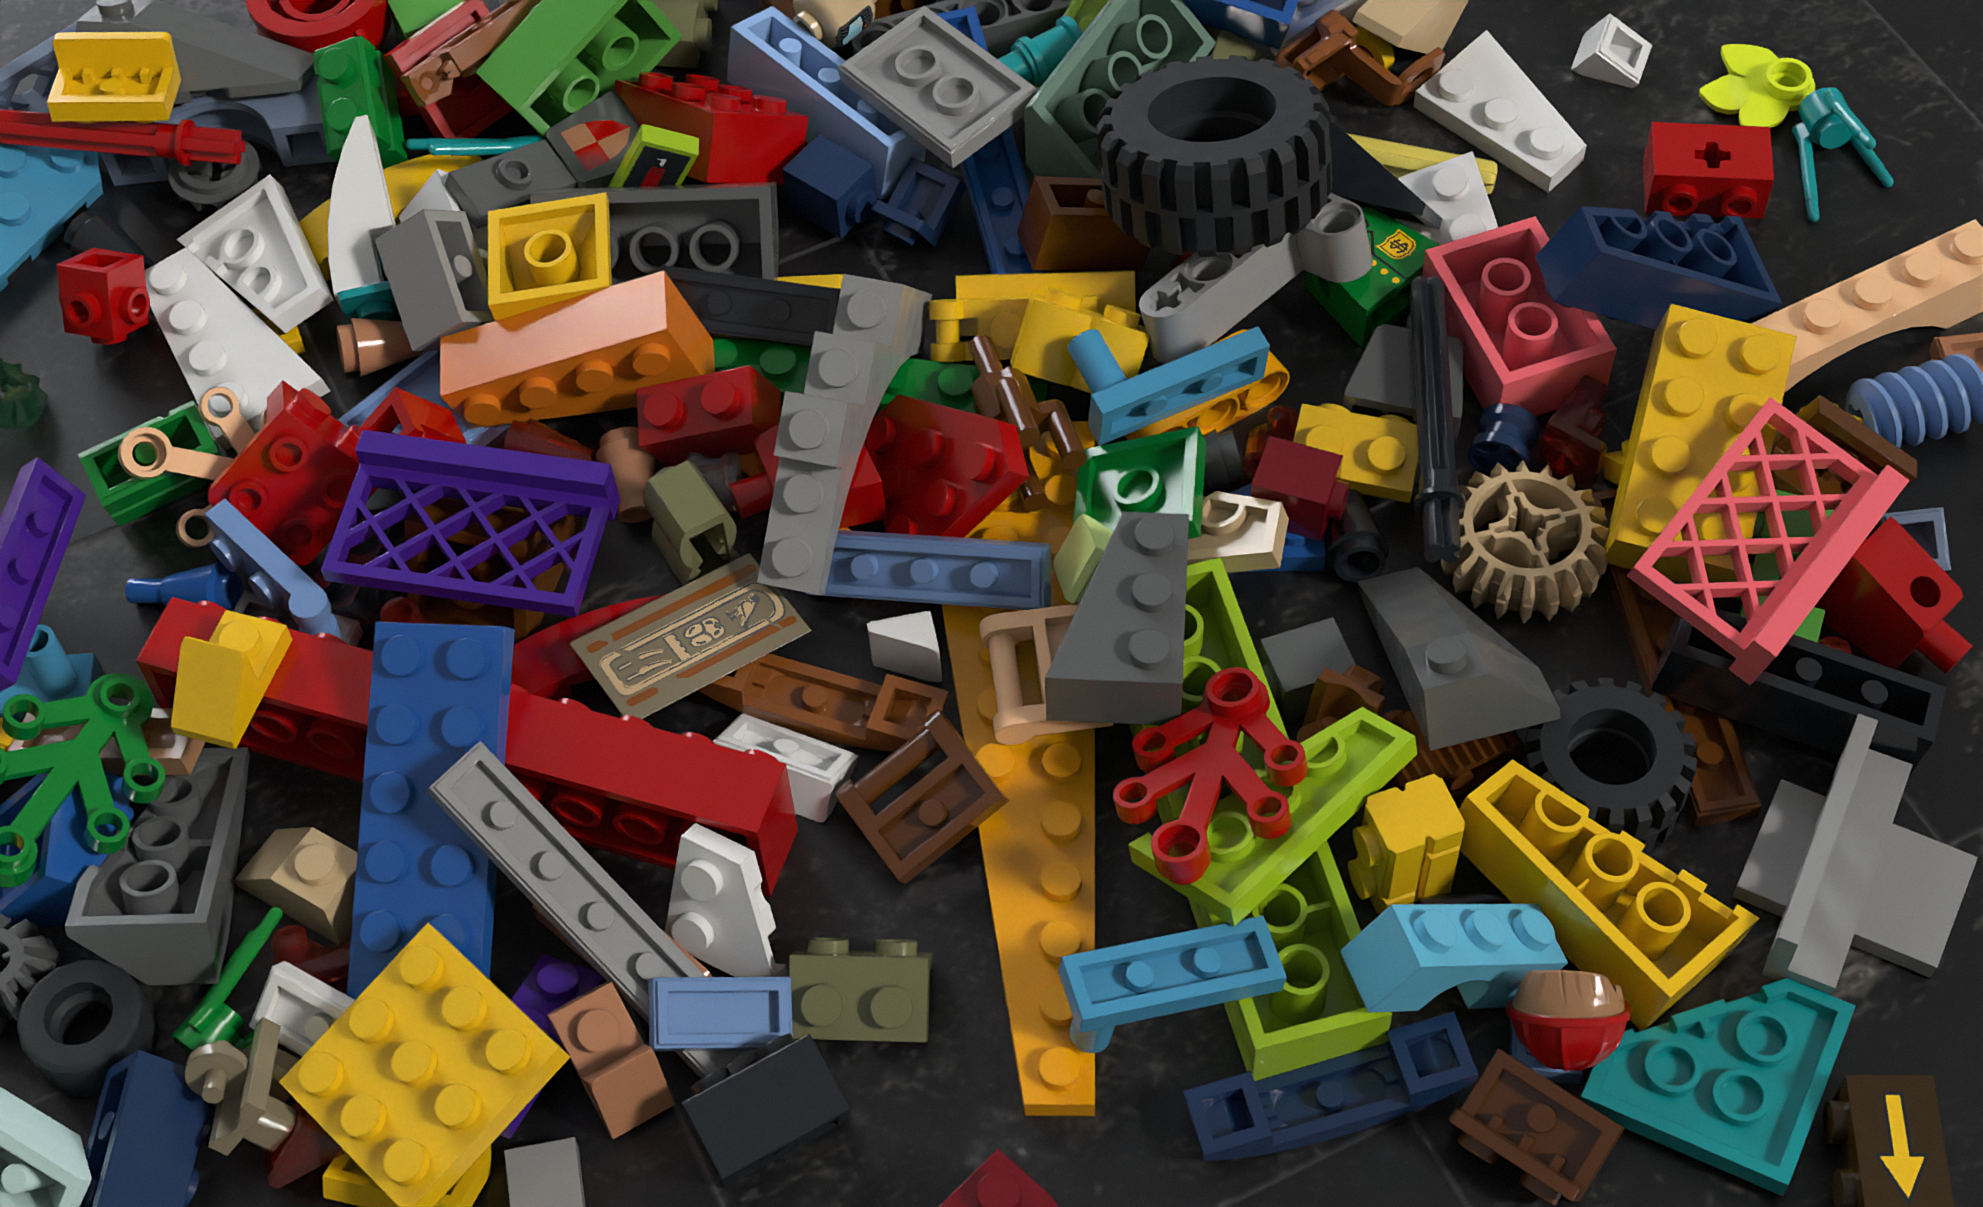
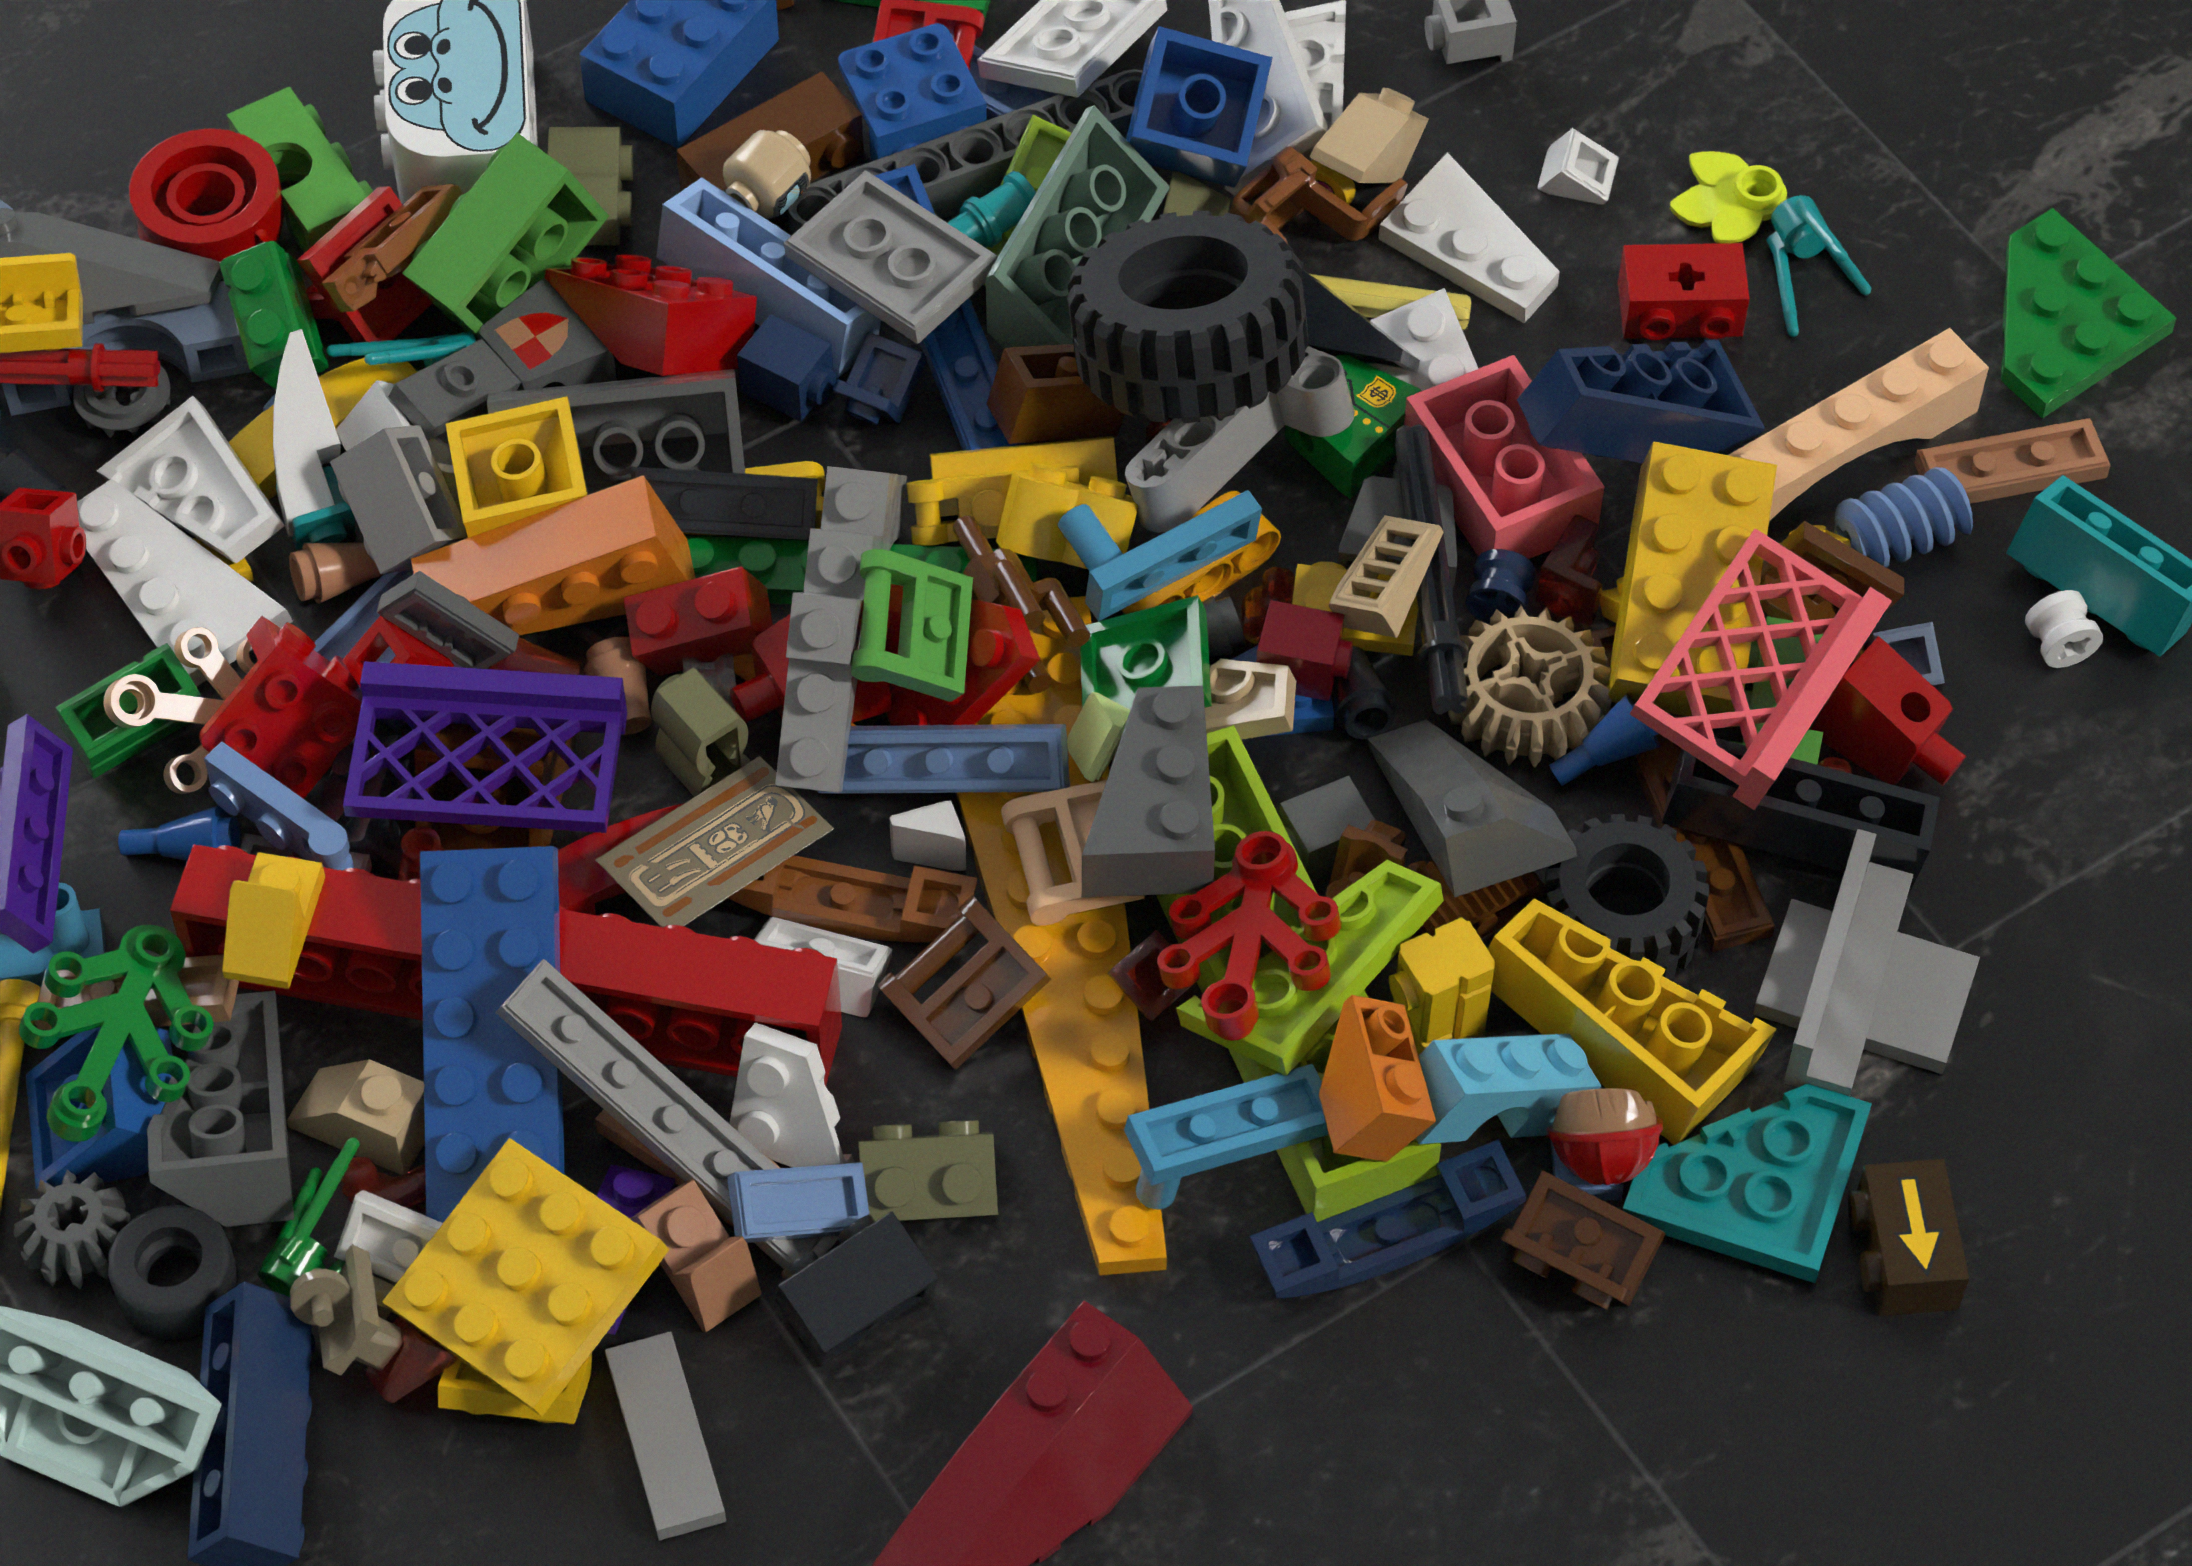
camera: 10 degrees left, 0 degrees up
(459, 399) = (447, 622): none -> dark grey plate
(656, 158) = (608, 355): tile -> none
(924, 439) = (931, 625): none -> bright green plate
(1098, 811) = (1141, 979): none -> clear red slope
(1325, 942) = (1374, 1082): none -> orange slope
(1396, 441) = (1389, 610): none -> tan slope
(1606, 601) = (1609, 741): none -> blue cone

